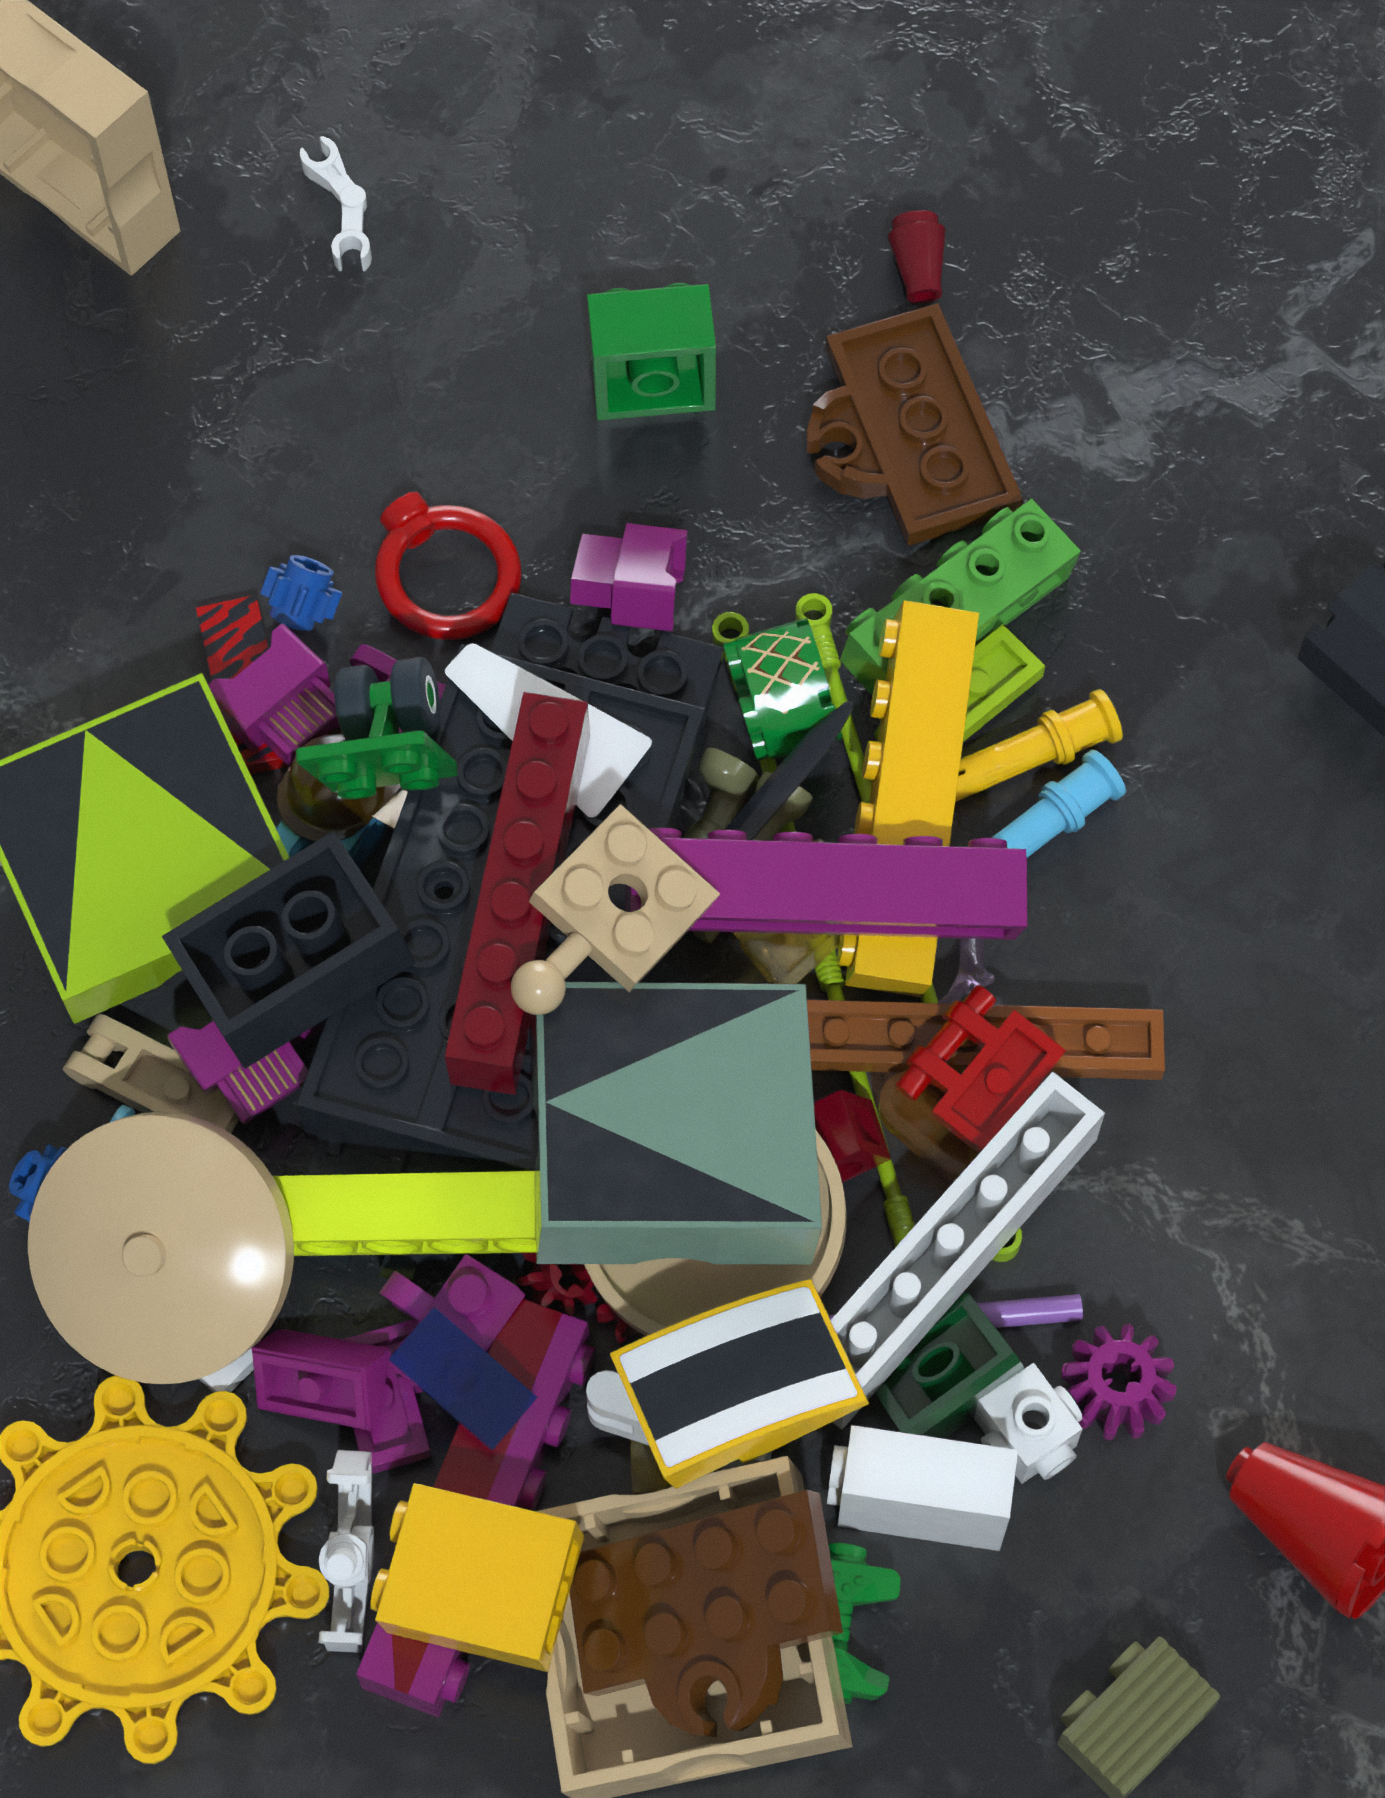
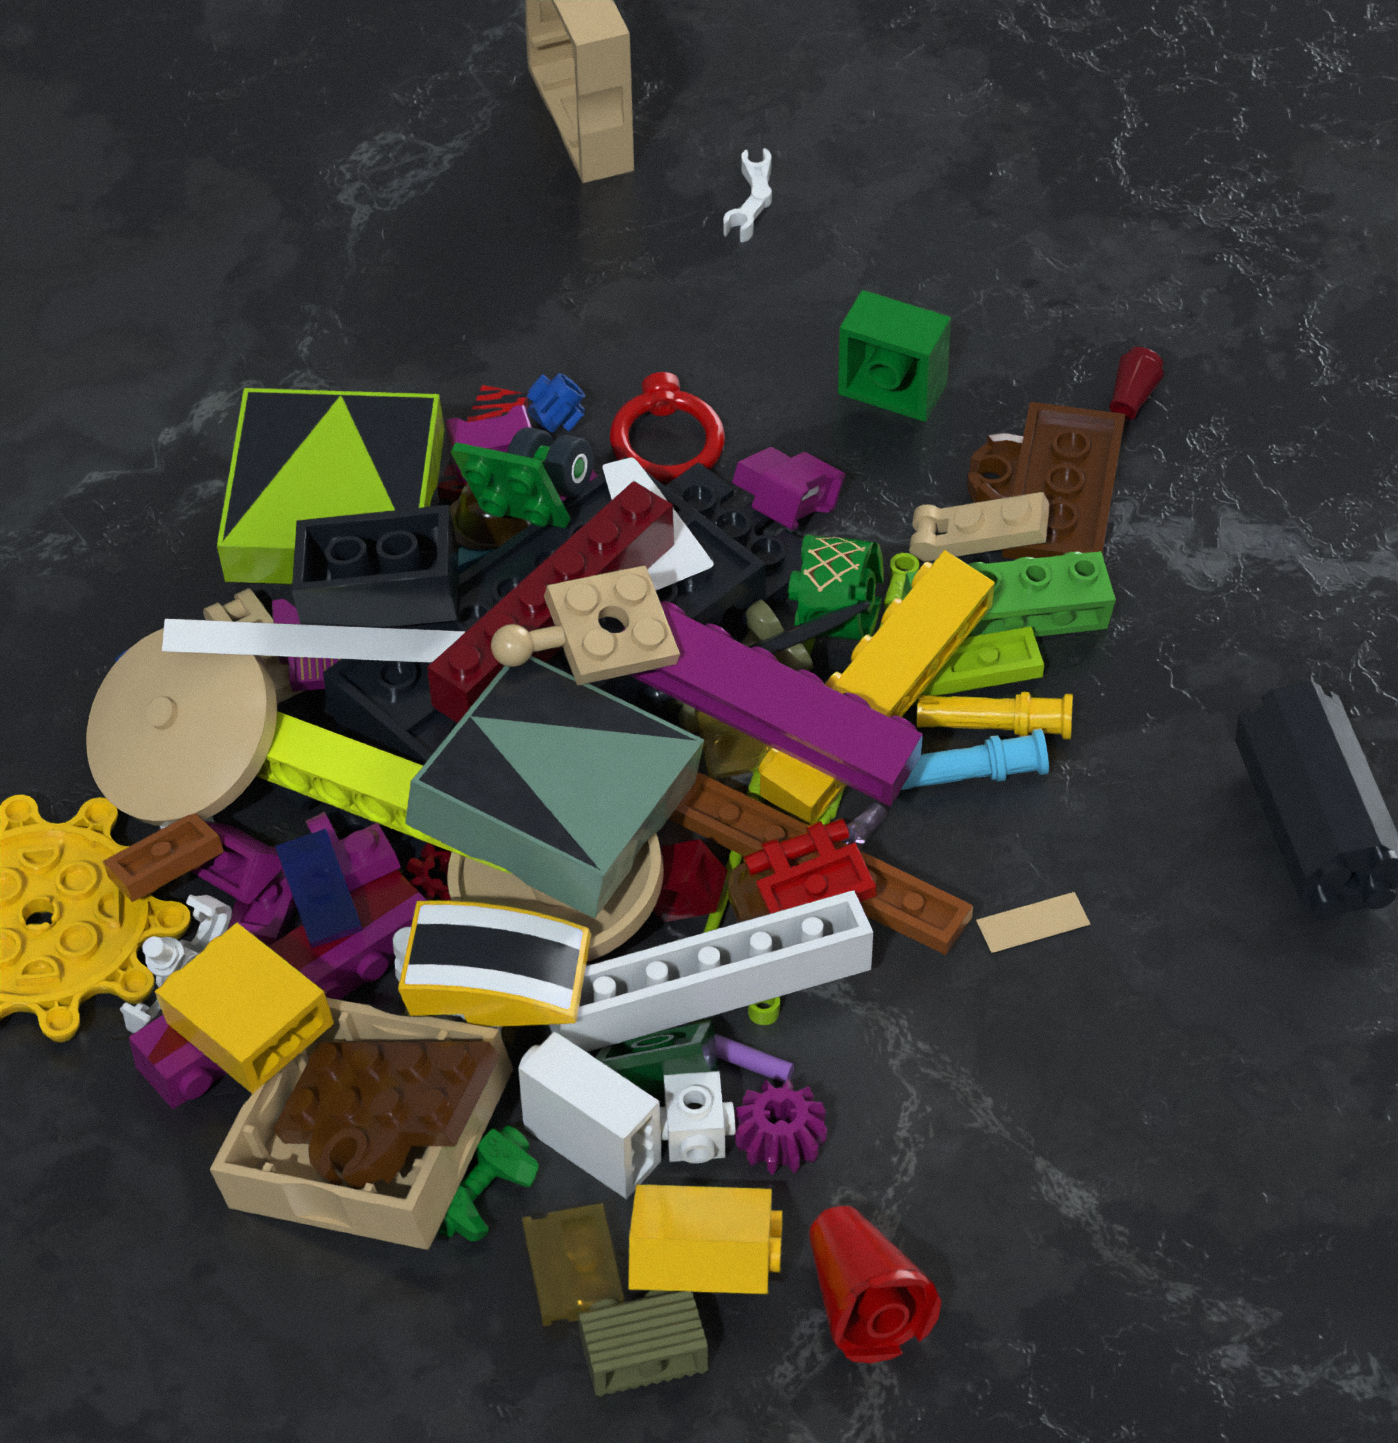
camera: 30 degrees right, 15 degrees down
(244, 1424) = (163, 856): none -> dark orange plate
(271, 1076) = (306, 640): none -> white sticker
(872, 525) = (979, 526): none -> tan plate
(1005, 1668) = (571, 1261): none -> clear yellow plate
(1137, 1571) = (703, 1239): none -> yellow brick
(1212, 983) = (1033, 922): none -> tan sticker

